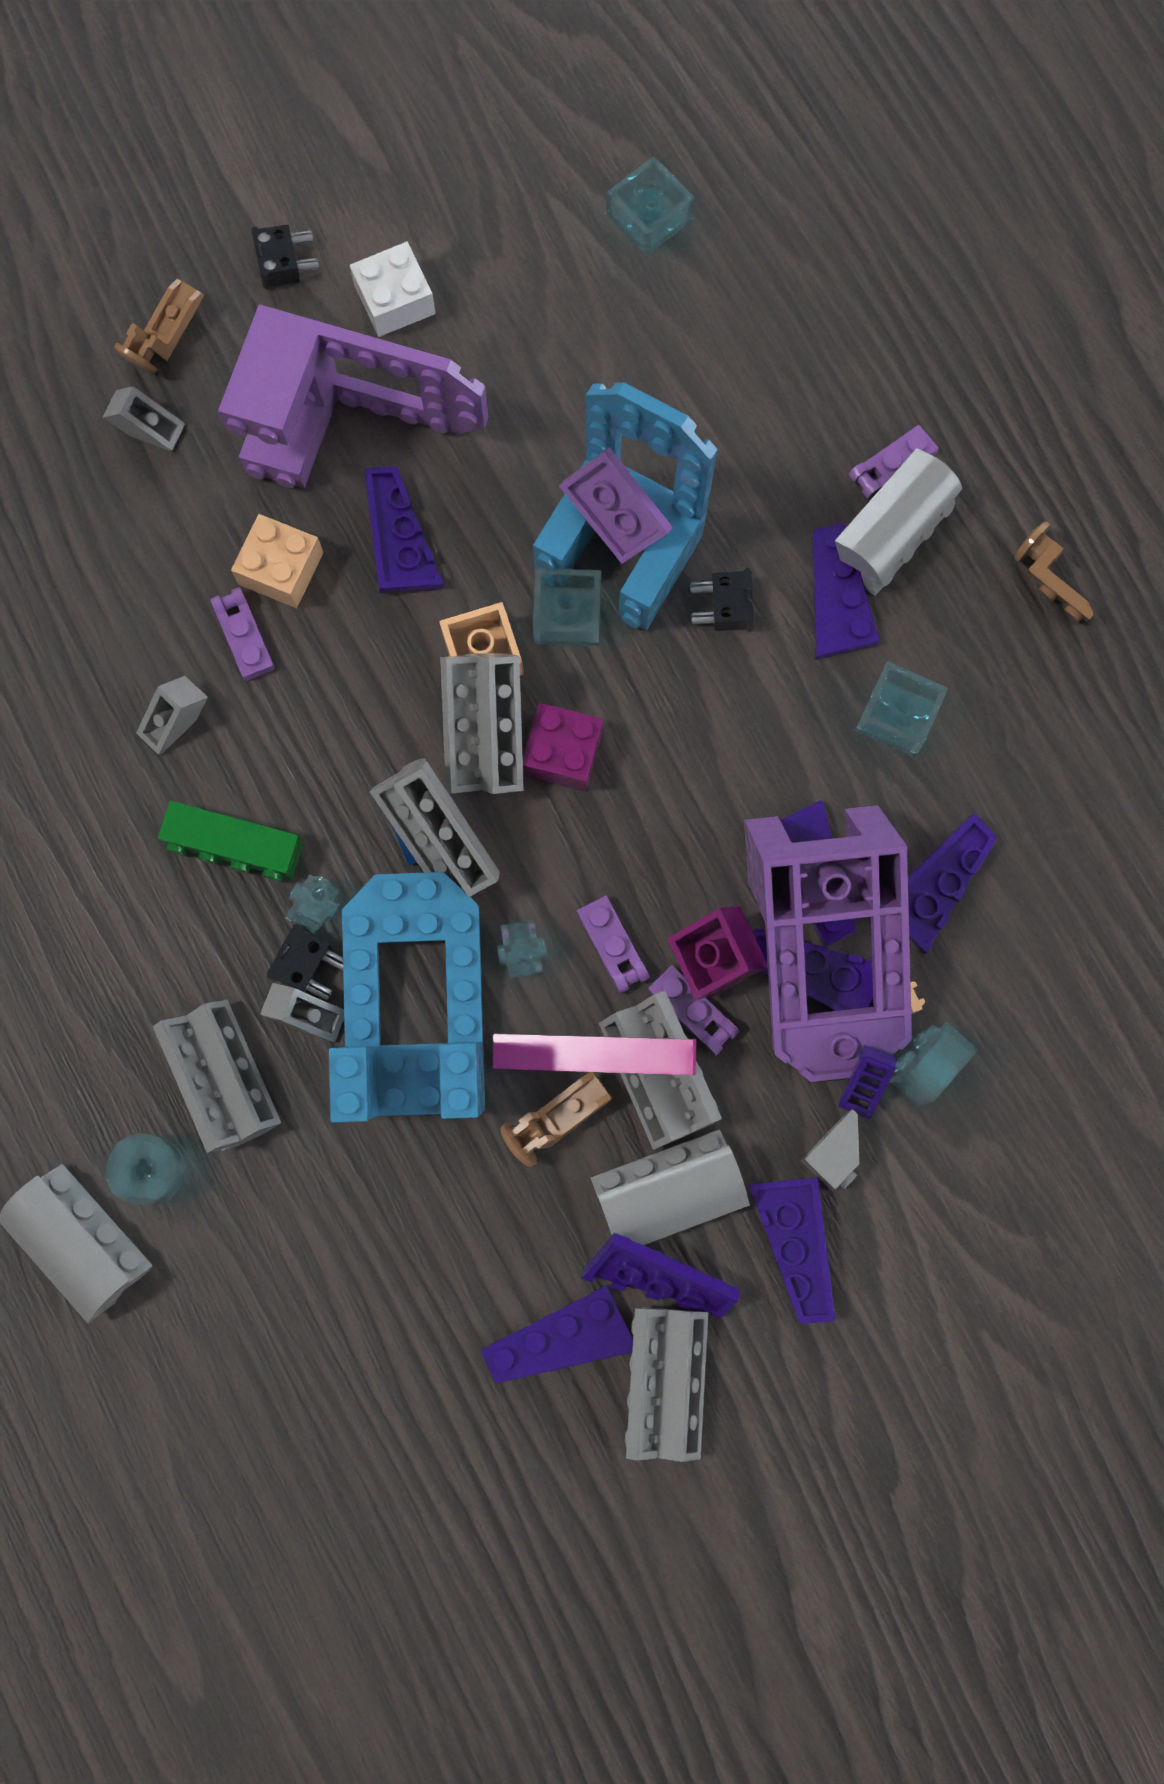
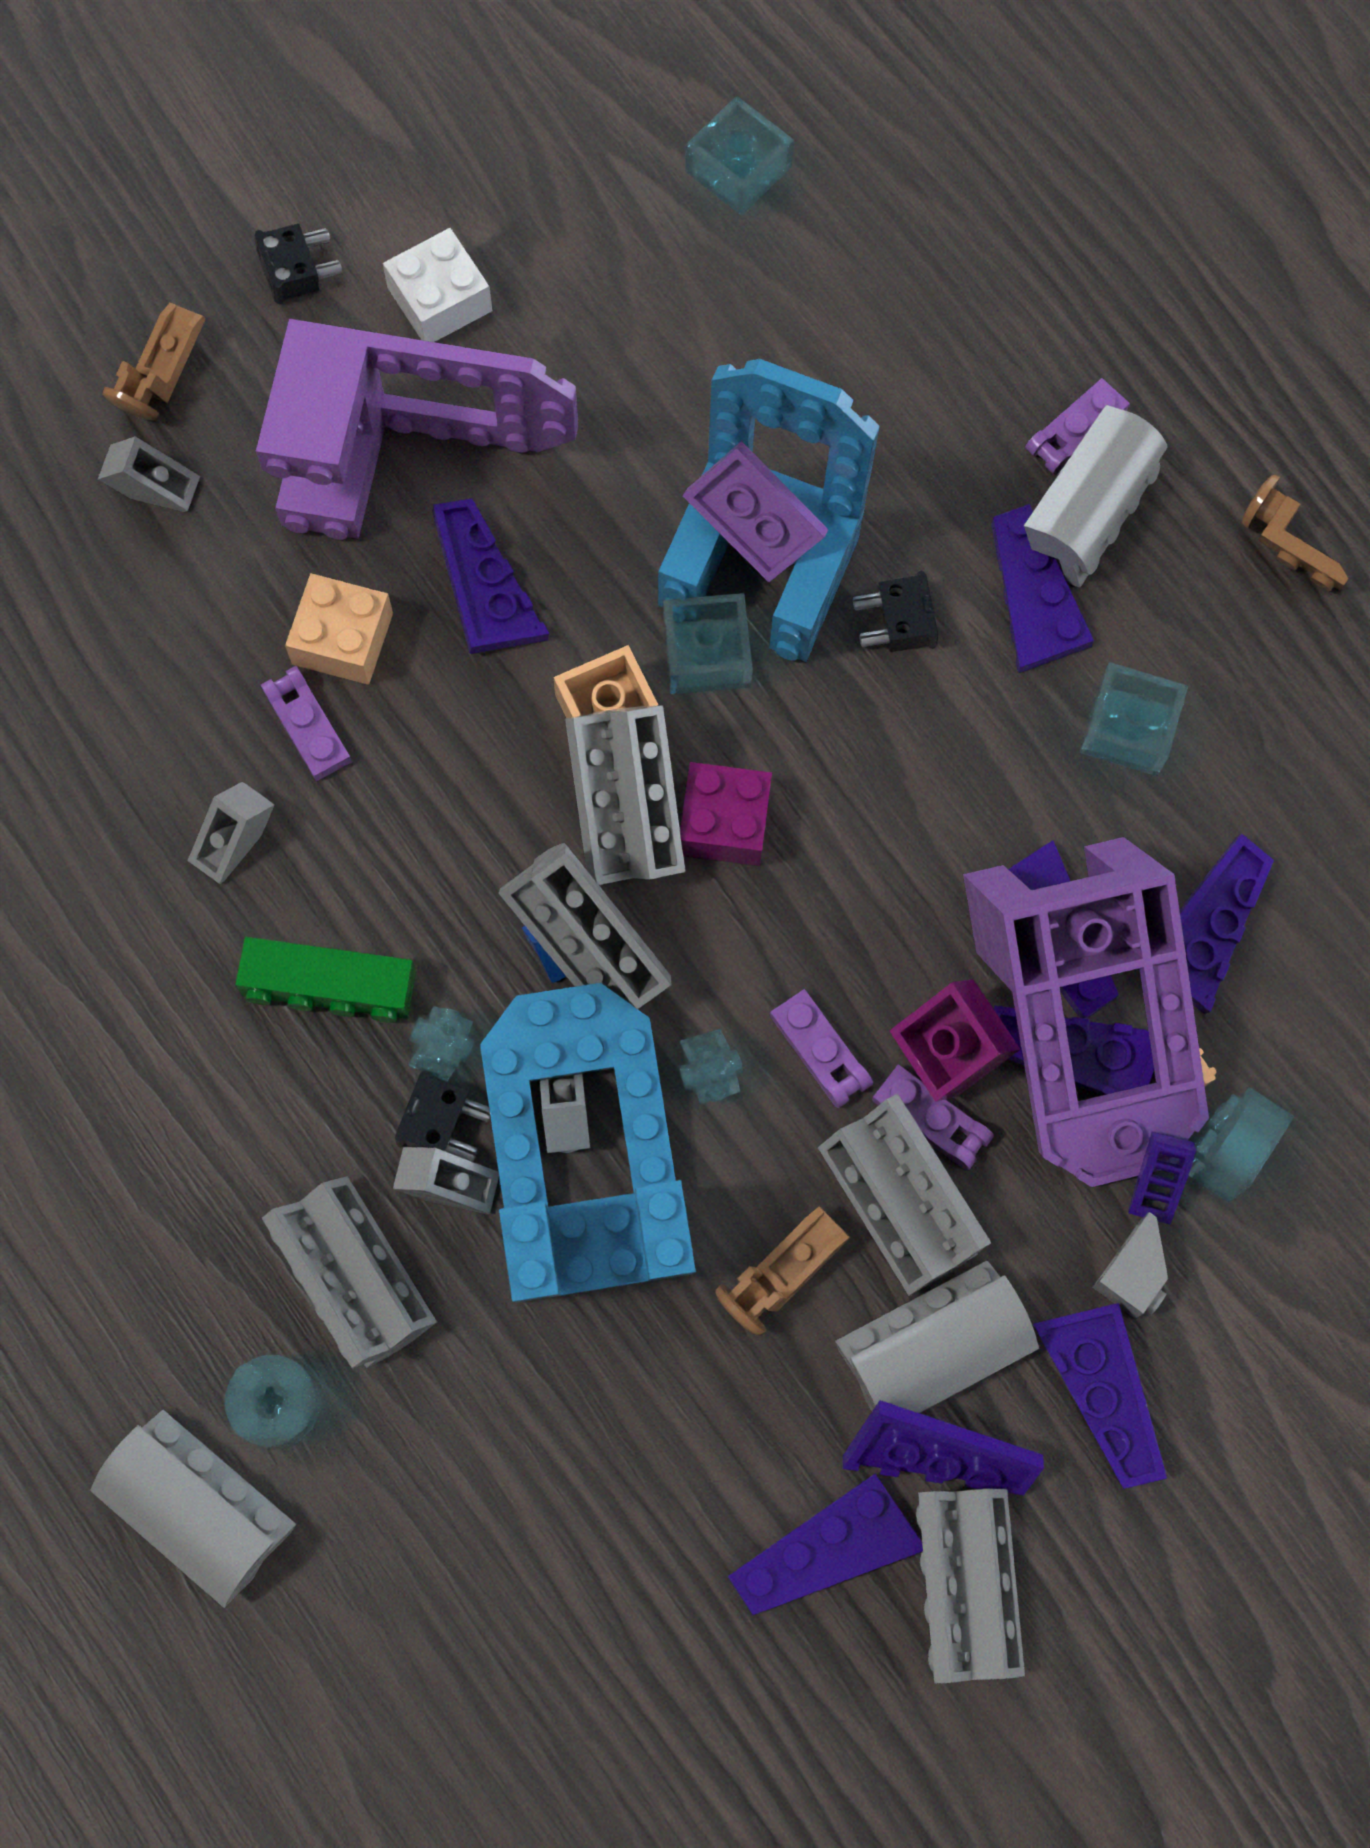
camera: 10 degrees left, 5 degrees down
(402, 971) = (564, 1114): none -> light grey slope
(595, 1054) = (820, 1183): tile -> none

